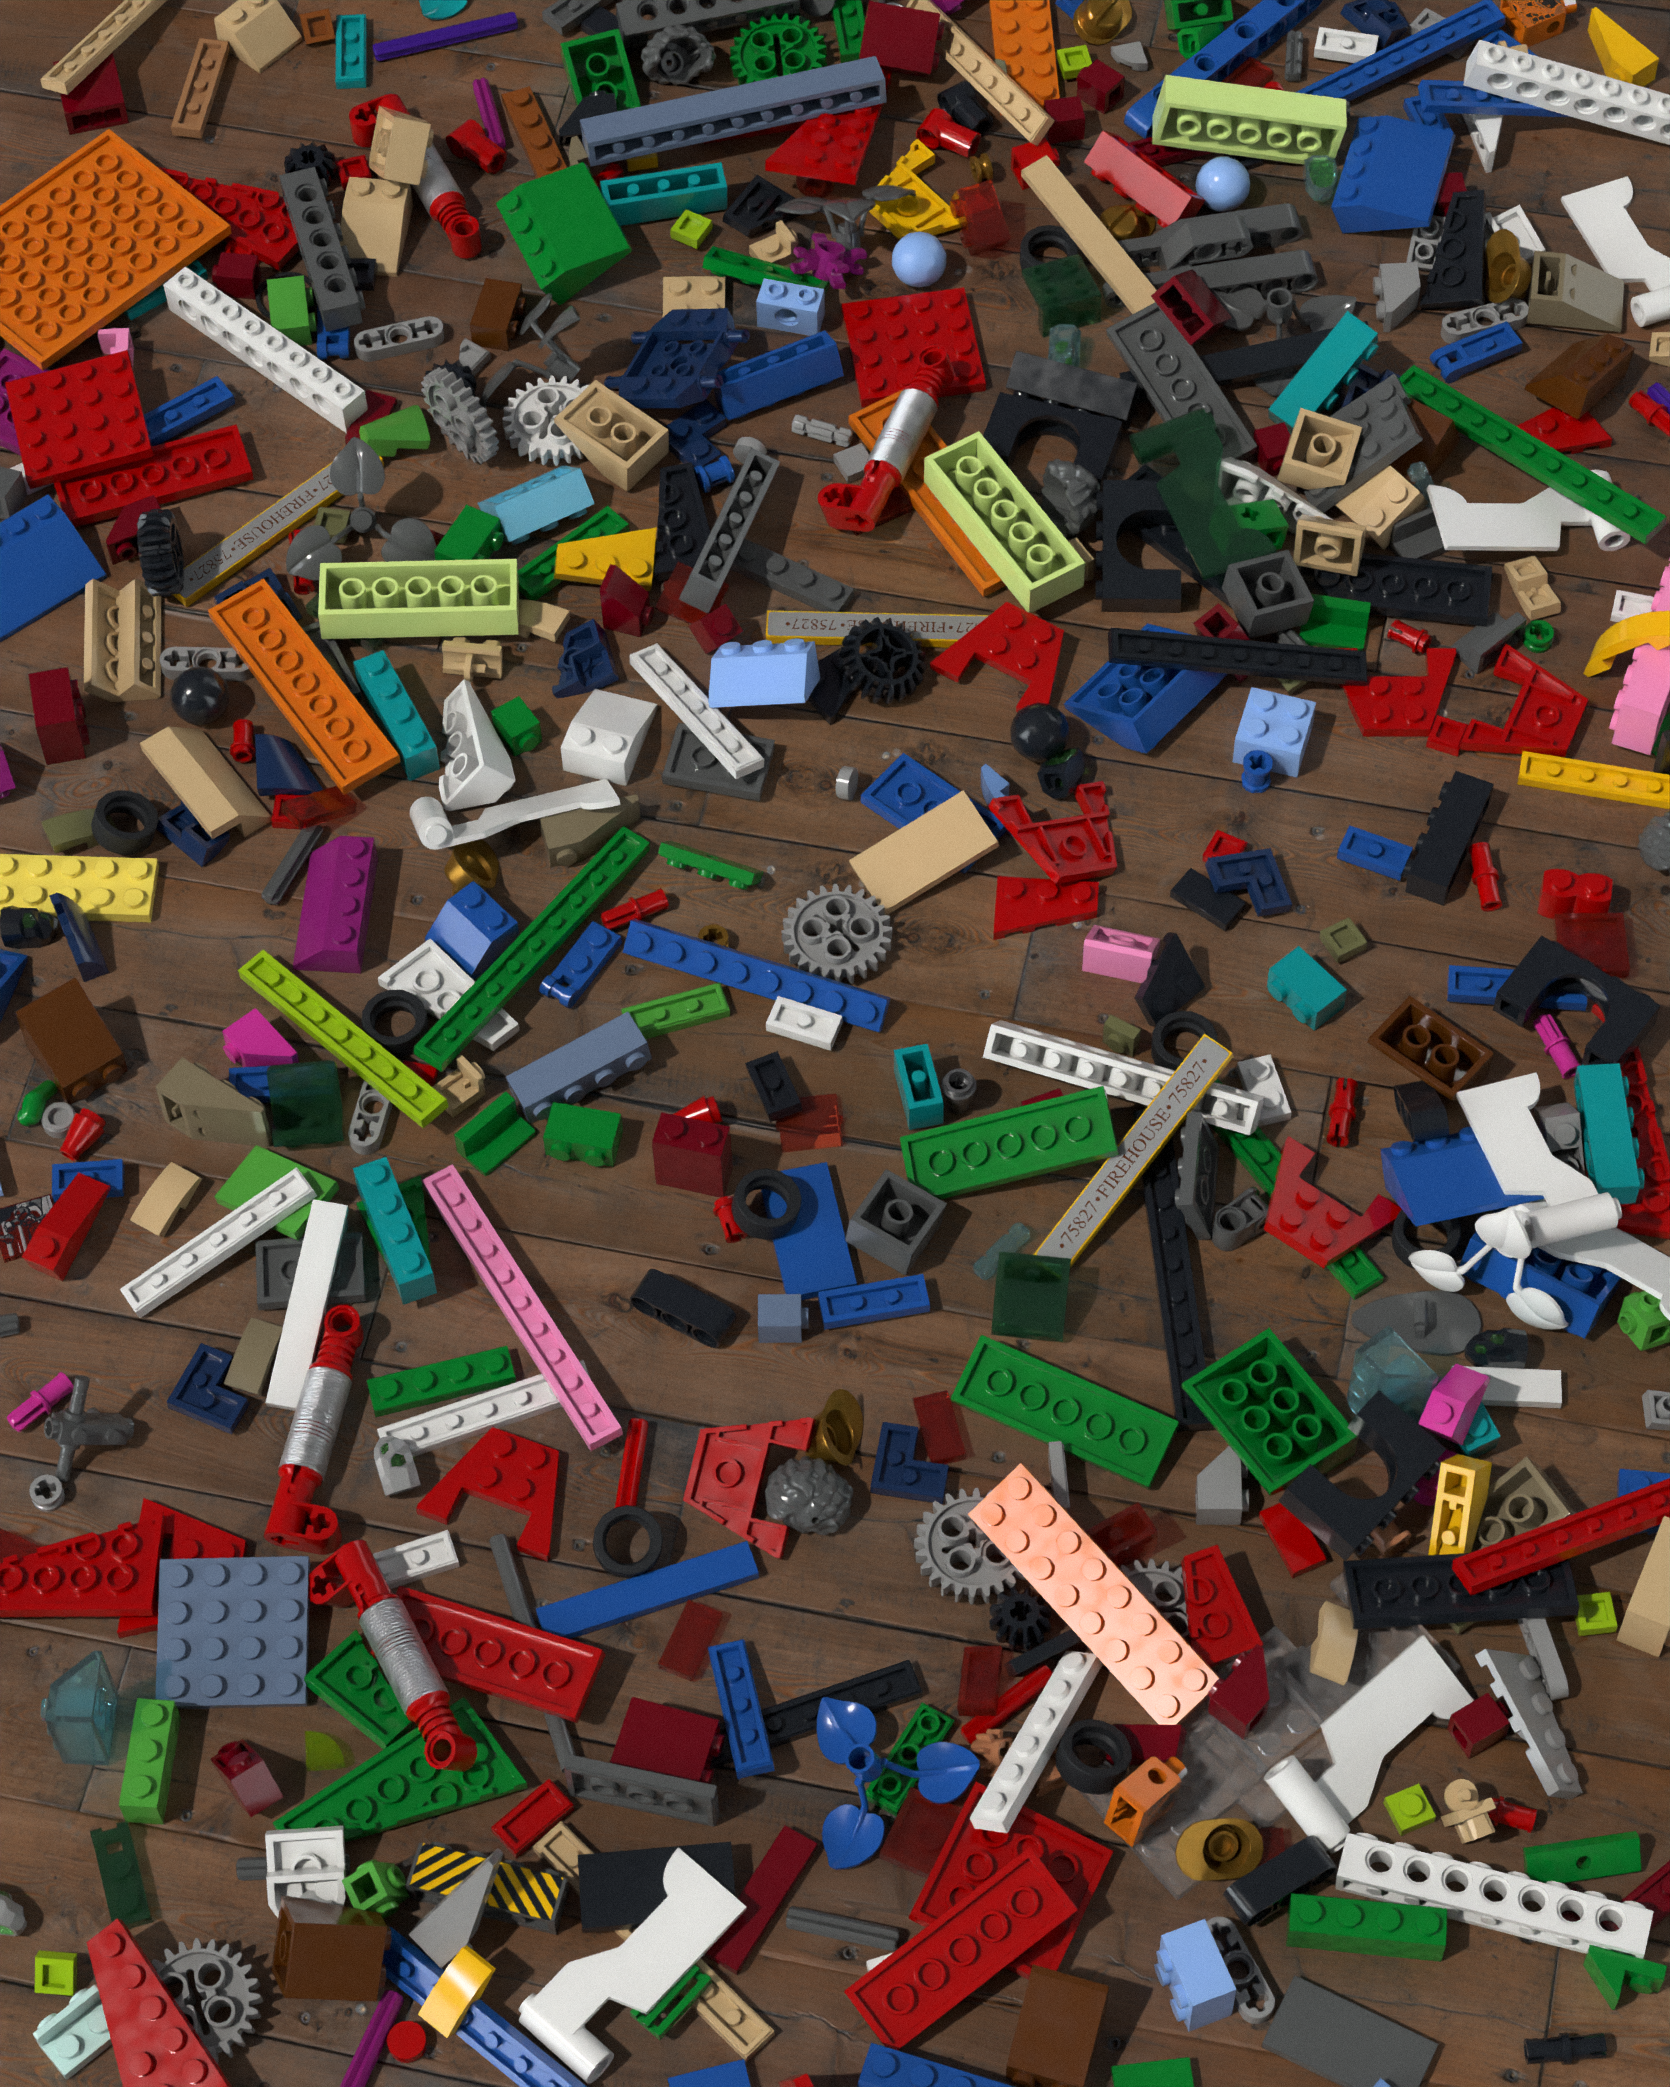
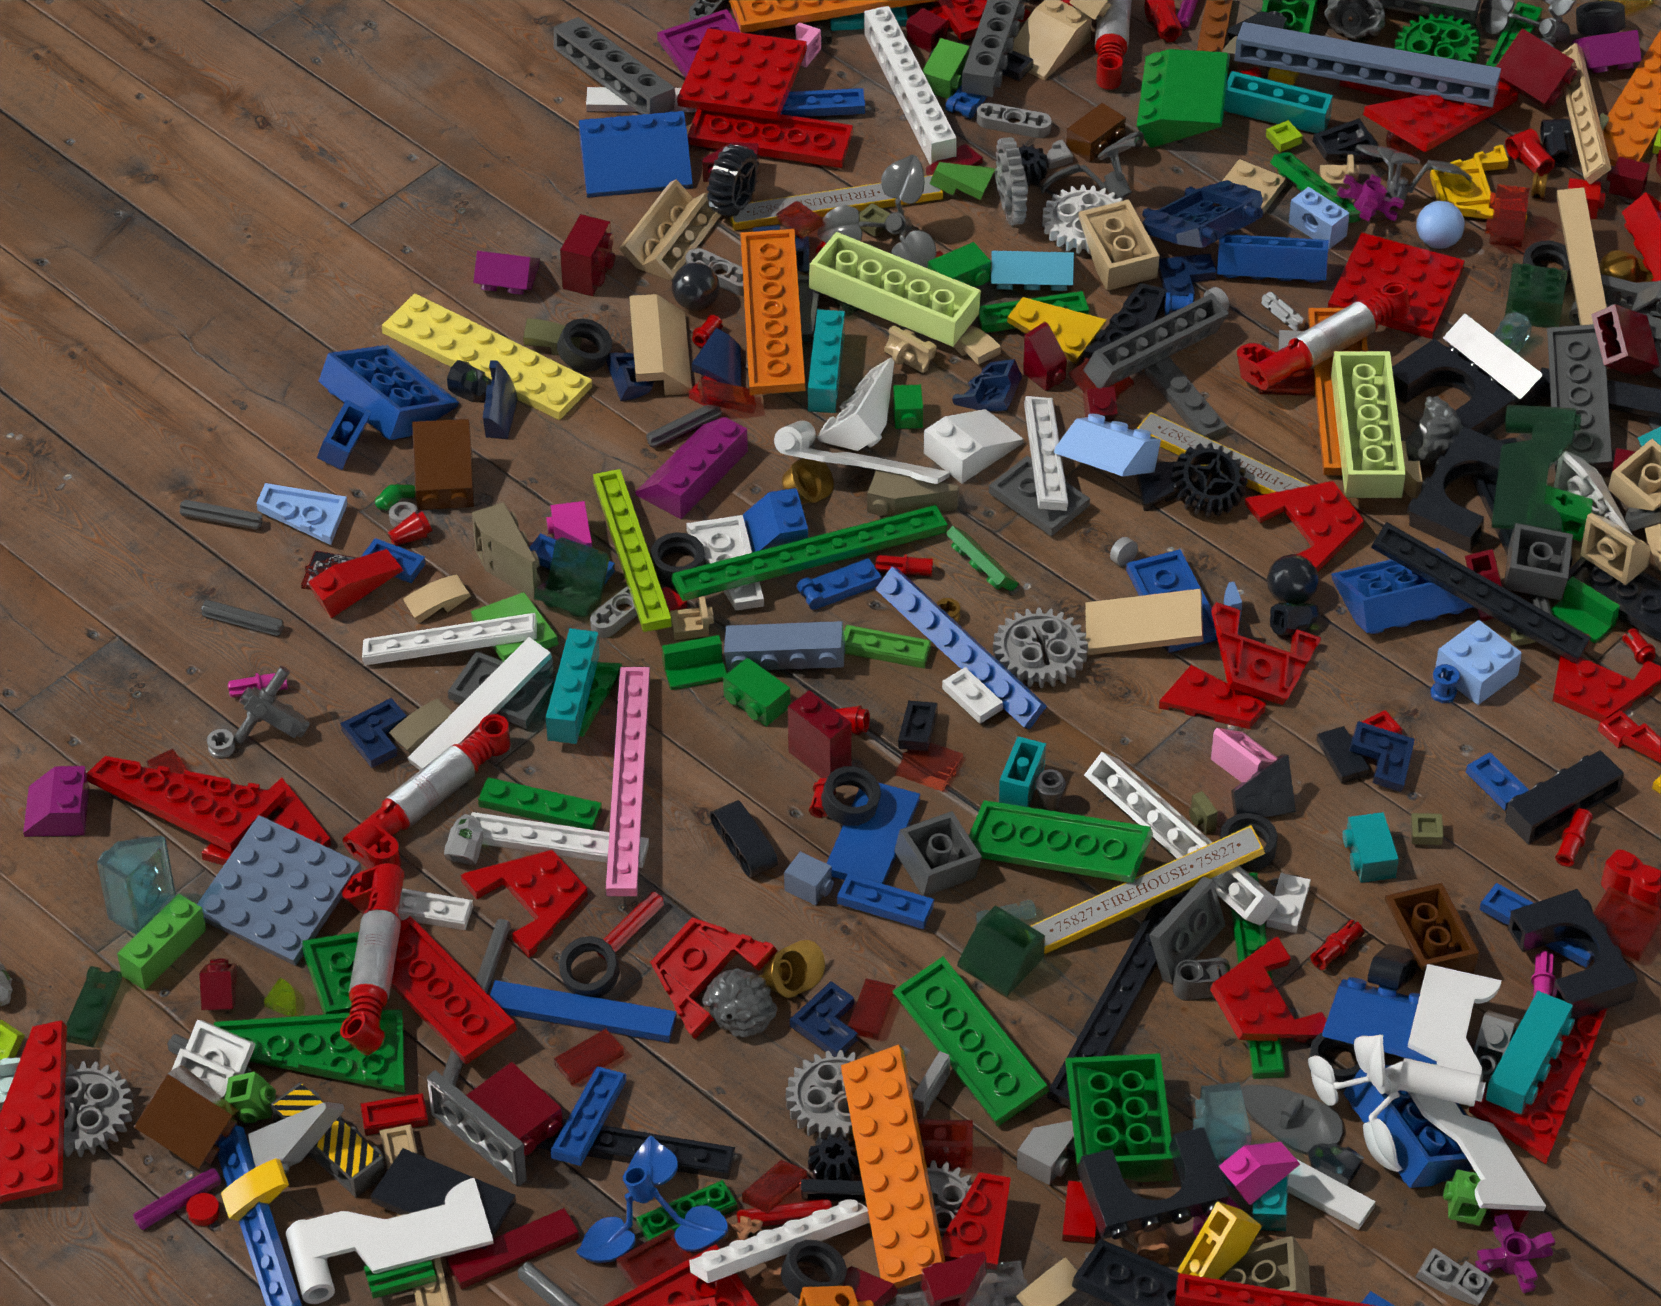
camera: 30 degrees right, 10 degrees down
(259, 563) = (800, 218): none -> clear red tile

